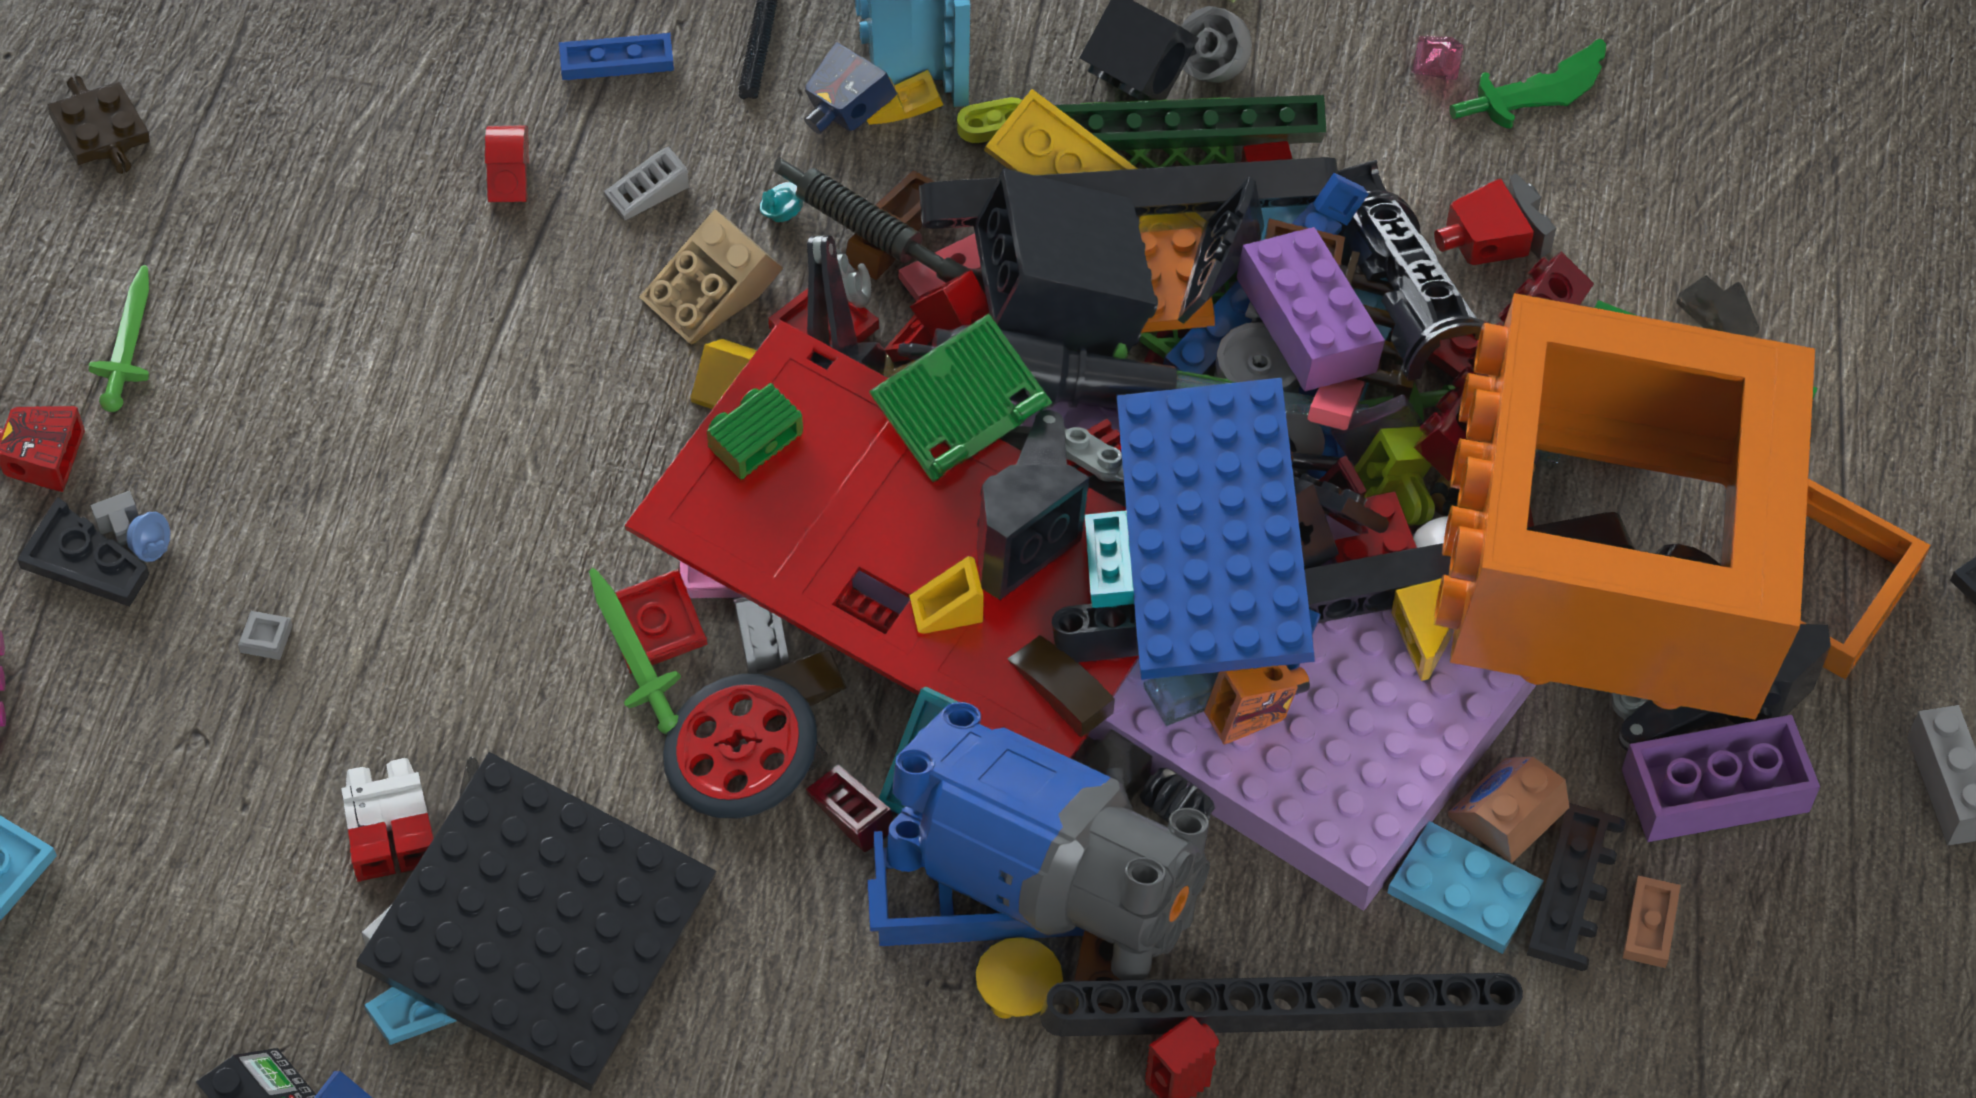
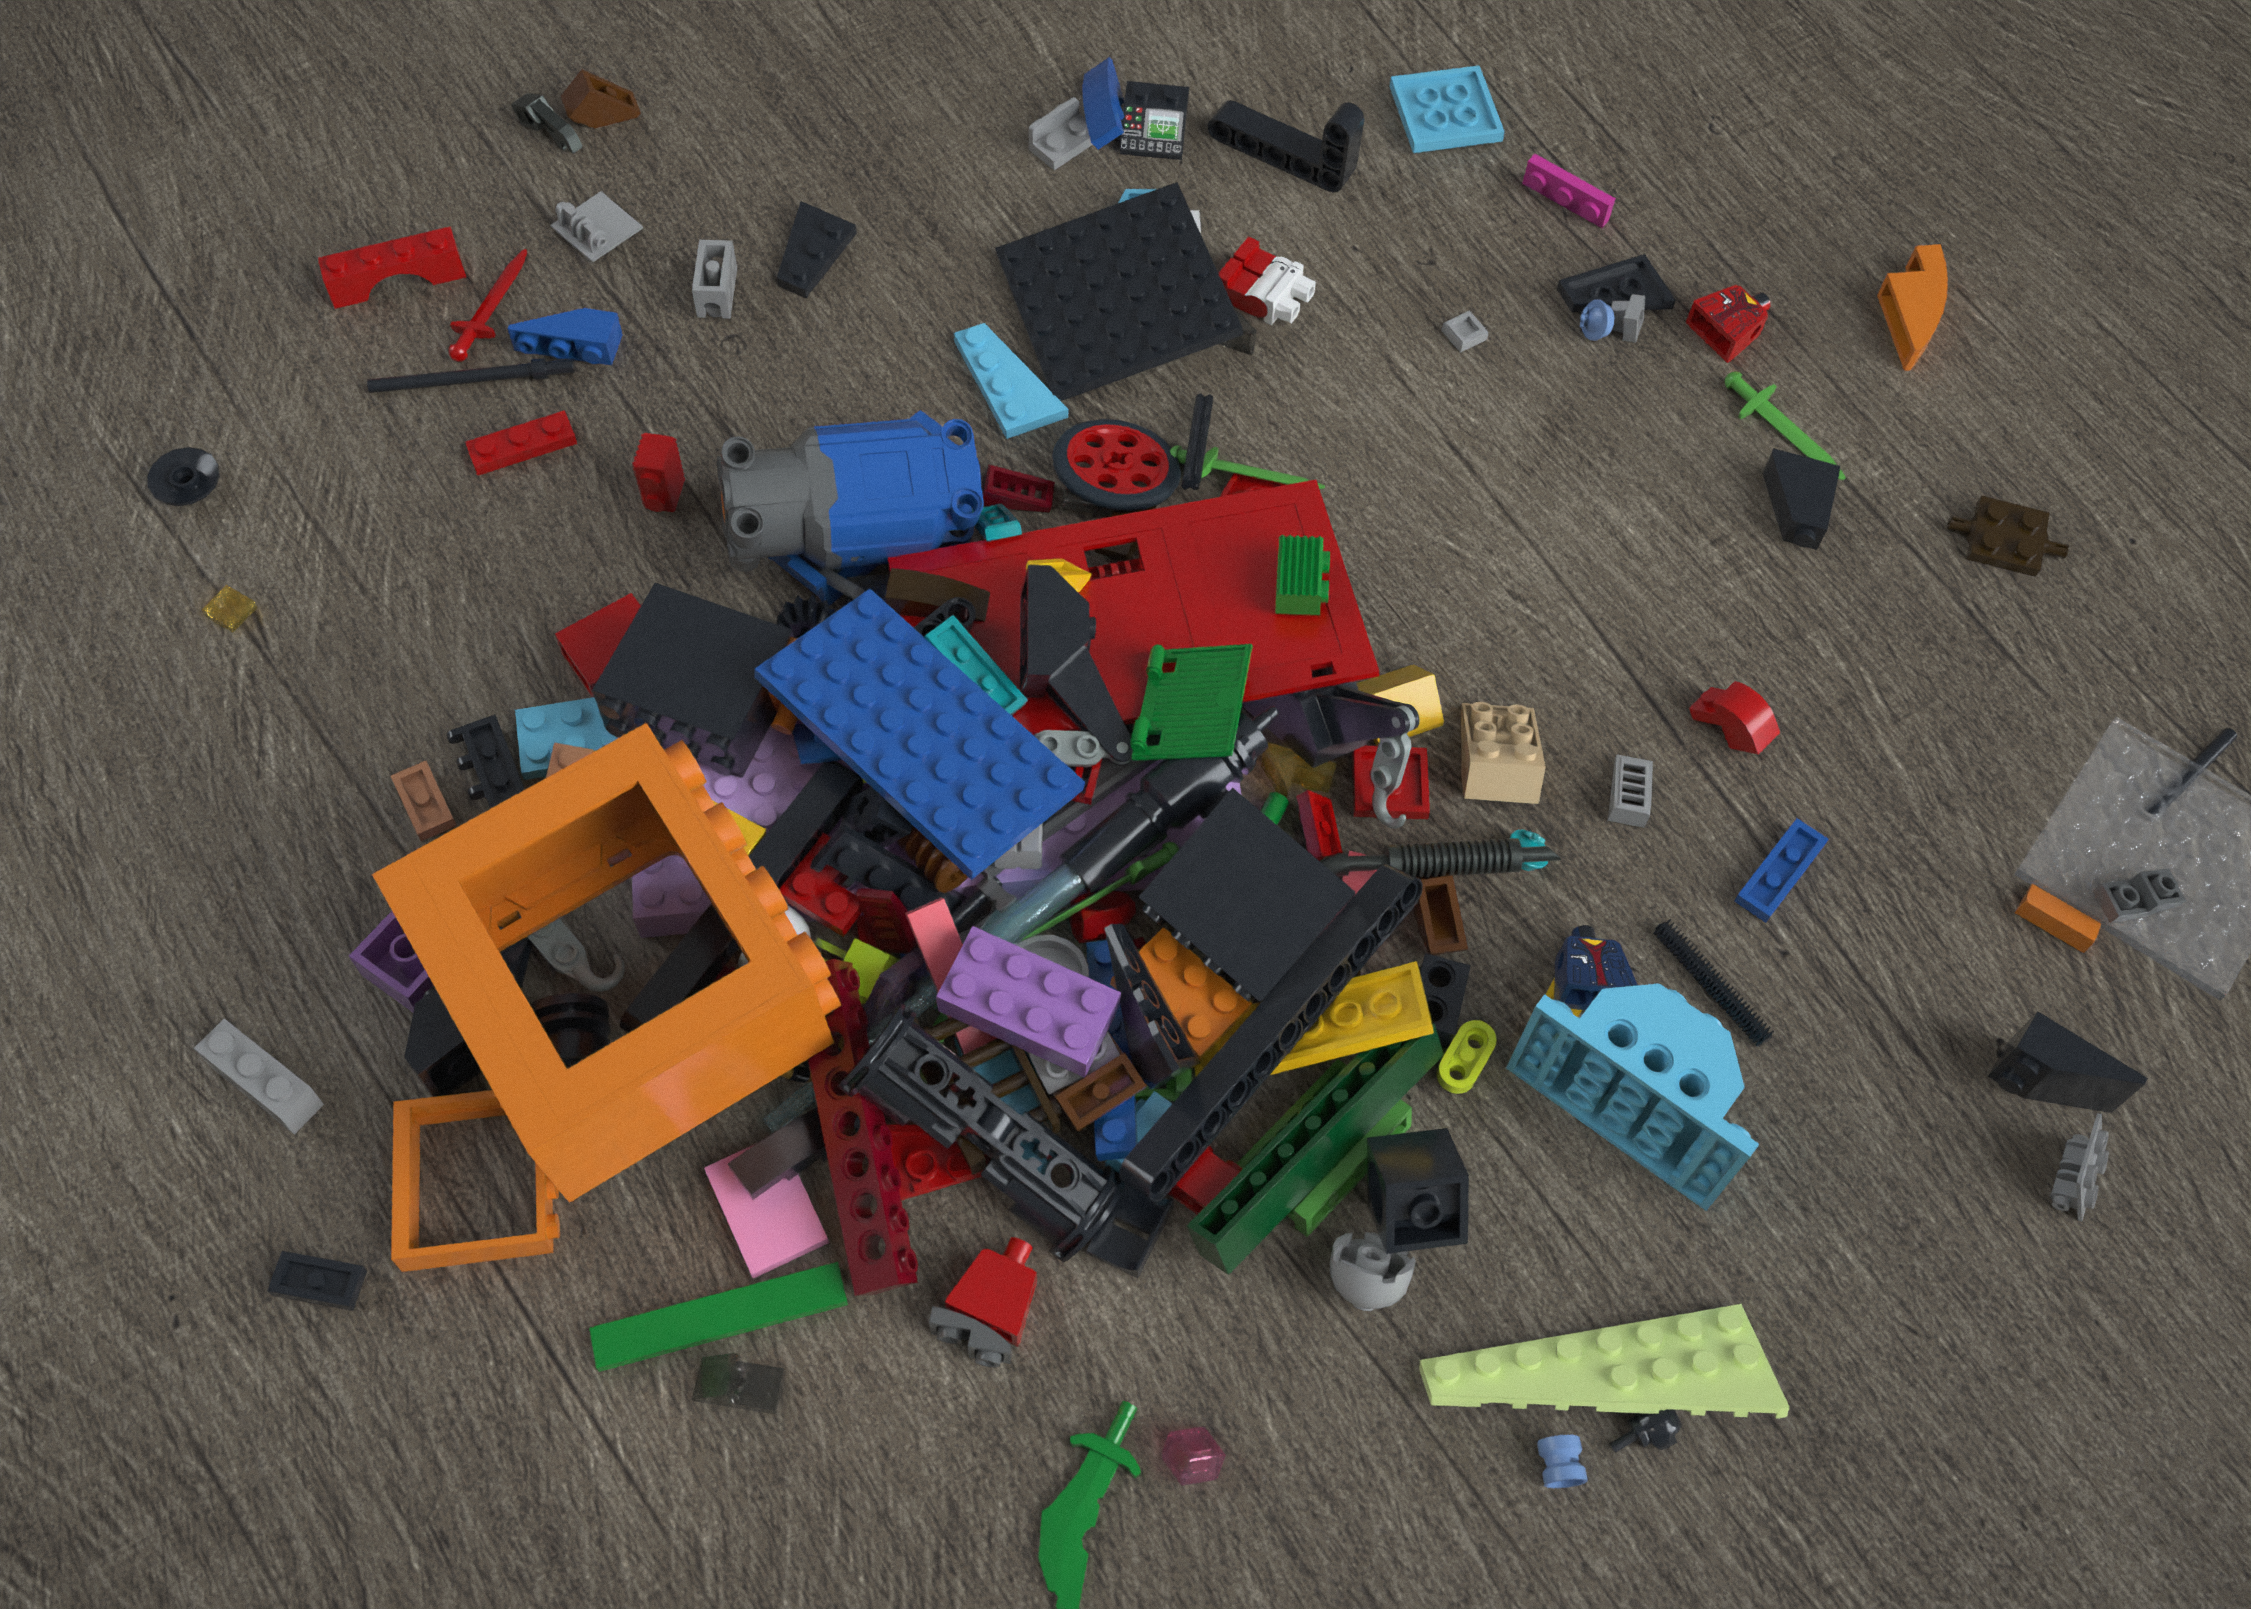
camera: 135 degrees right, 5 degrees up
(170, 942) = (1320, 162): none -> black beam
(212, 263) = (1801, 496): none -> black slope
(646, 702) = (1197, 442): none -> black axle
(741, 924) = (1008, 385): none -> medium azure wing
(952, 304) = (1301, 818): red torso -> none
(965, 156) = (1446, 1001): none -> black brick
(1298, 992) = (611, 556): black beam -> none
(1340, 199) = (1112, 1161): blue tile -> none
(1344, 759) = (692, 678): none -> black brick
(1368, 938) = (594, 639): none -> red slope

